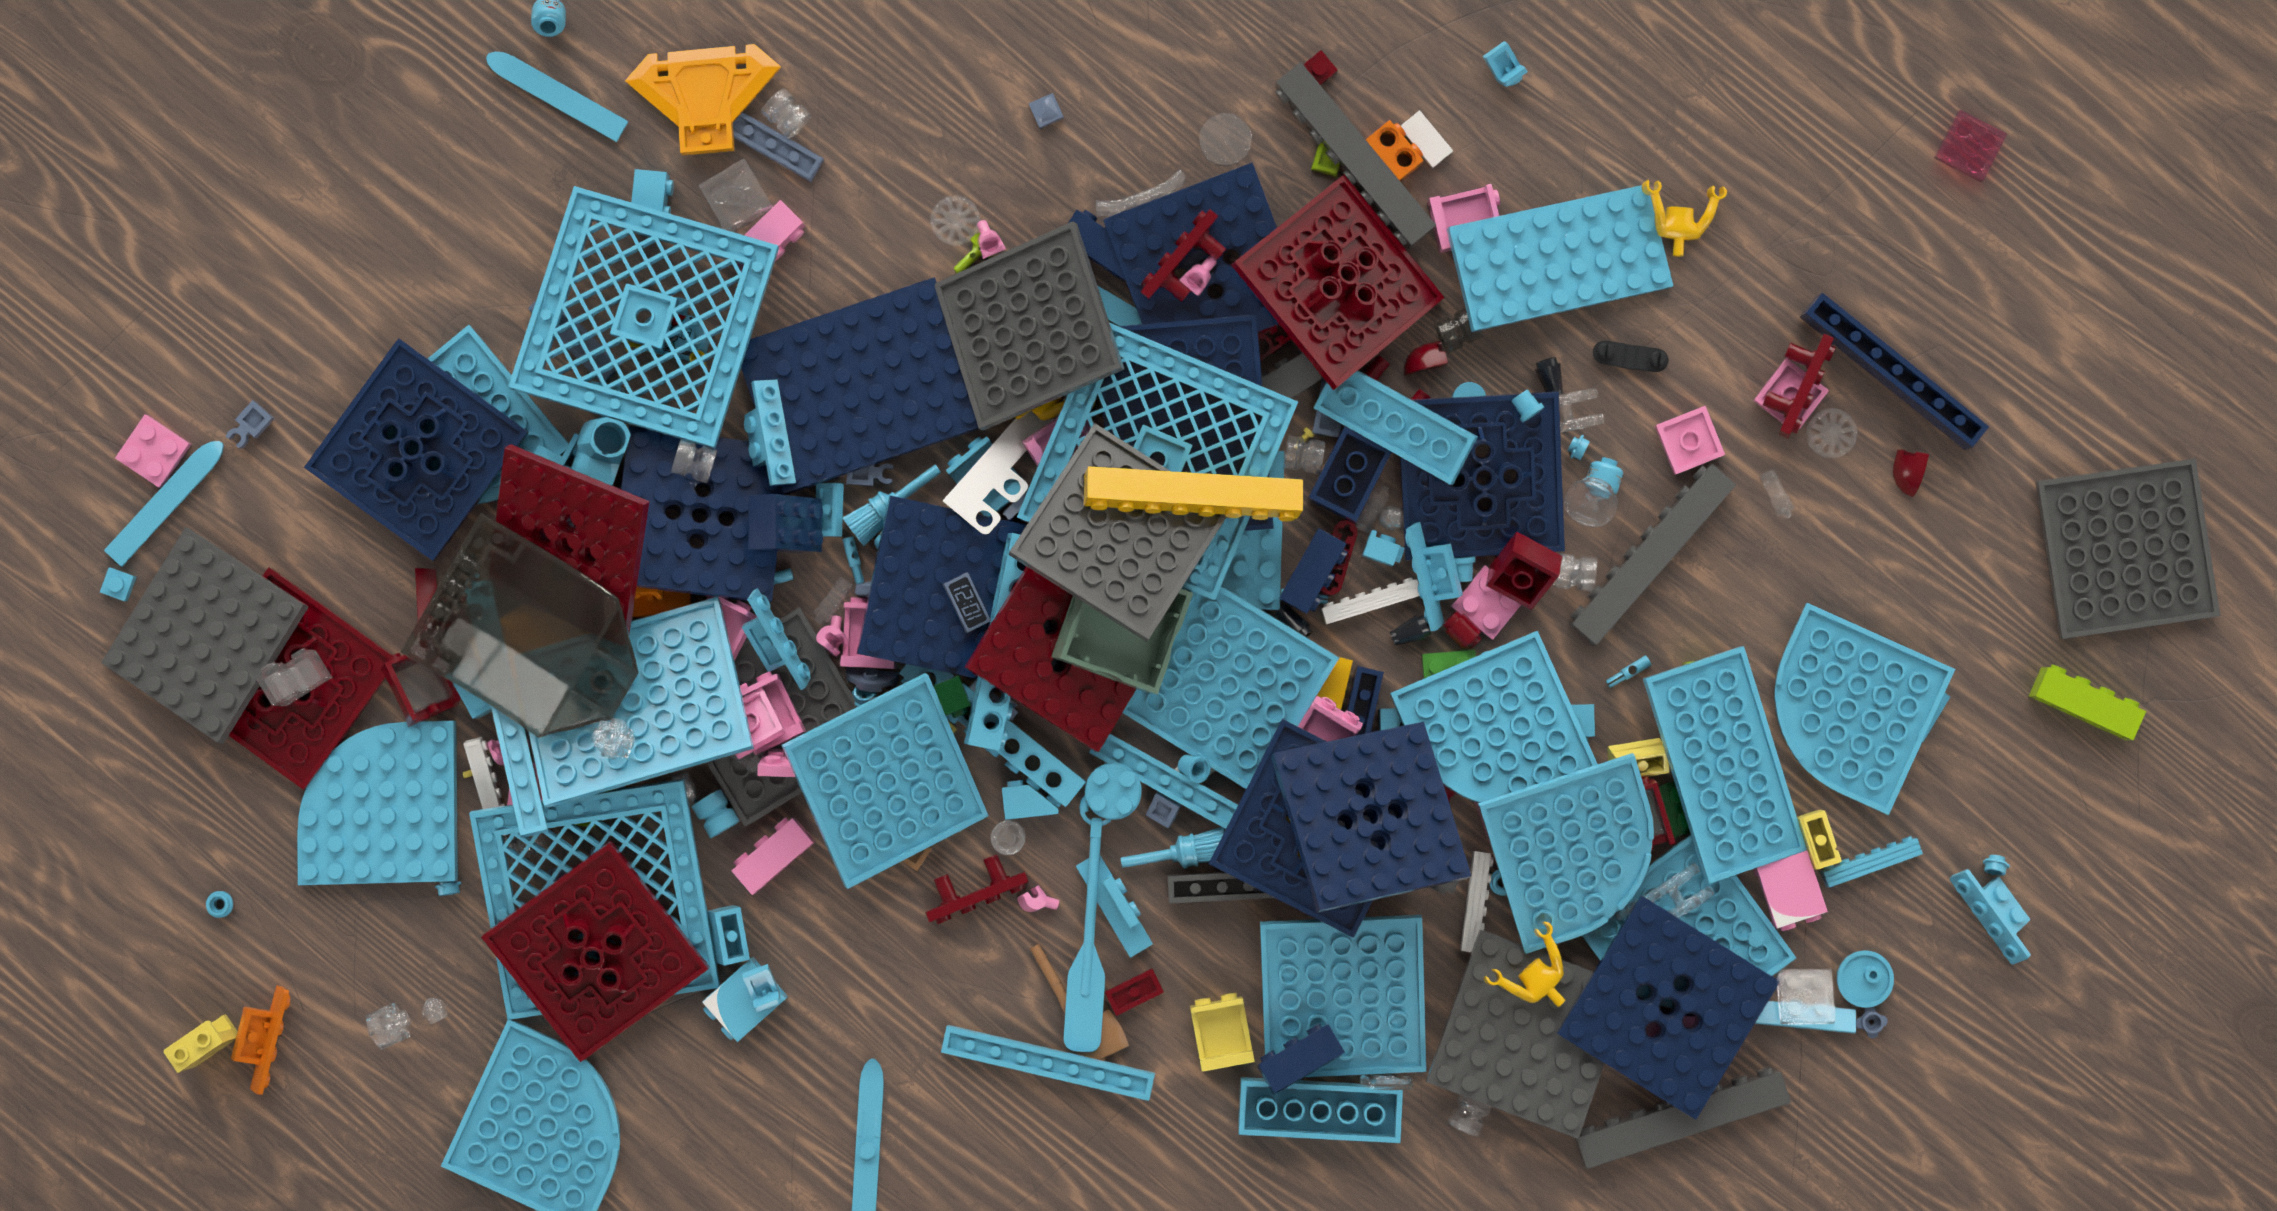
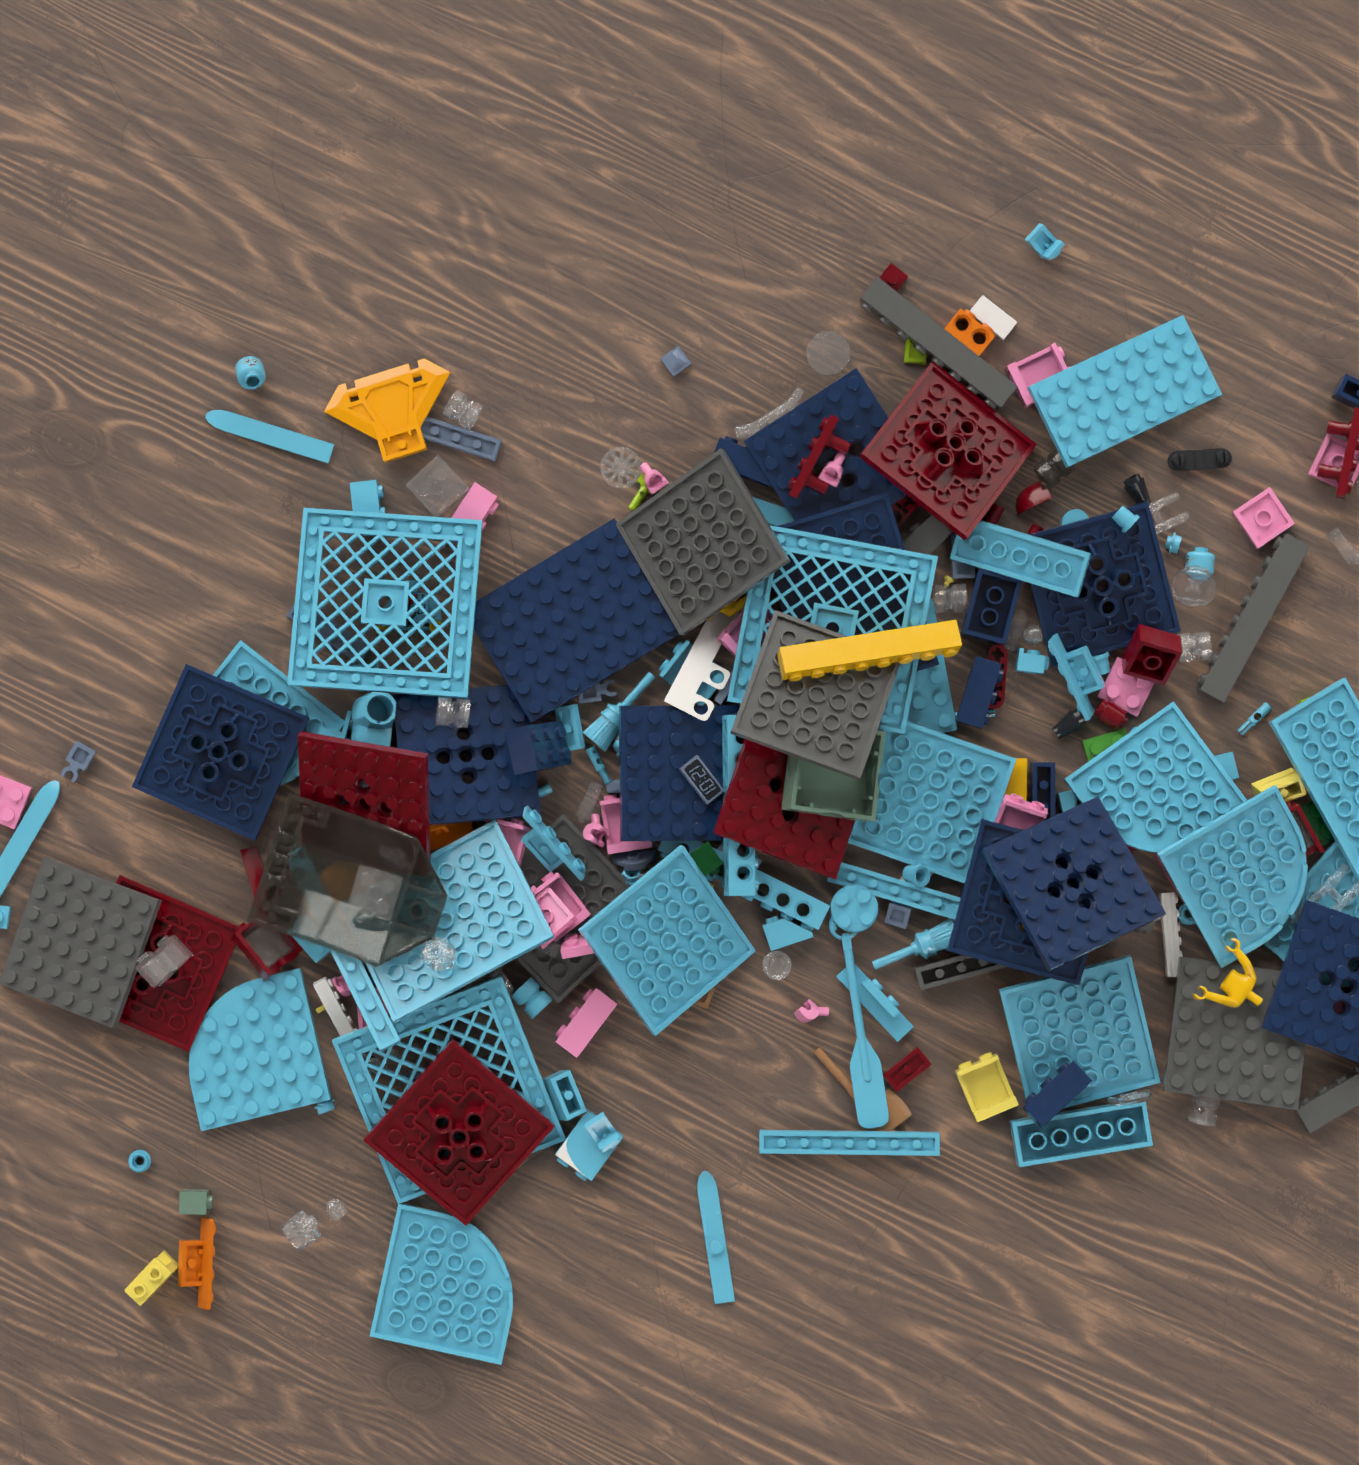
camera: 10 degrees left, 0 degrees up
(273, 965) = (195, 1201): none -> sand green brick
(556, 651) = (374, 892): none -> clear plate
(768, 433) = (508, 676): medium azure bracket -> none
(953, 903) = (742, 1028): dark red plate -> none
(1293, 620) = (969, 735): black cone -> none
(1369, 602) = (1030, 707): white piece -> none
(1679, 221) = (1215, 340): yellow piece -> none

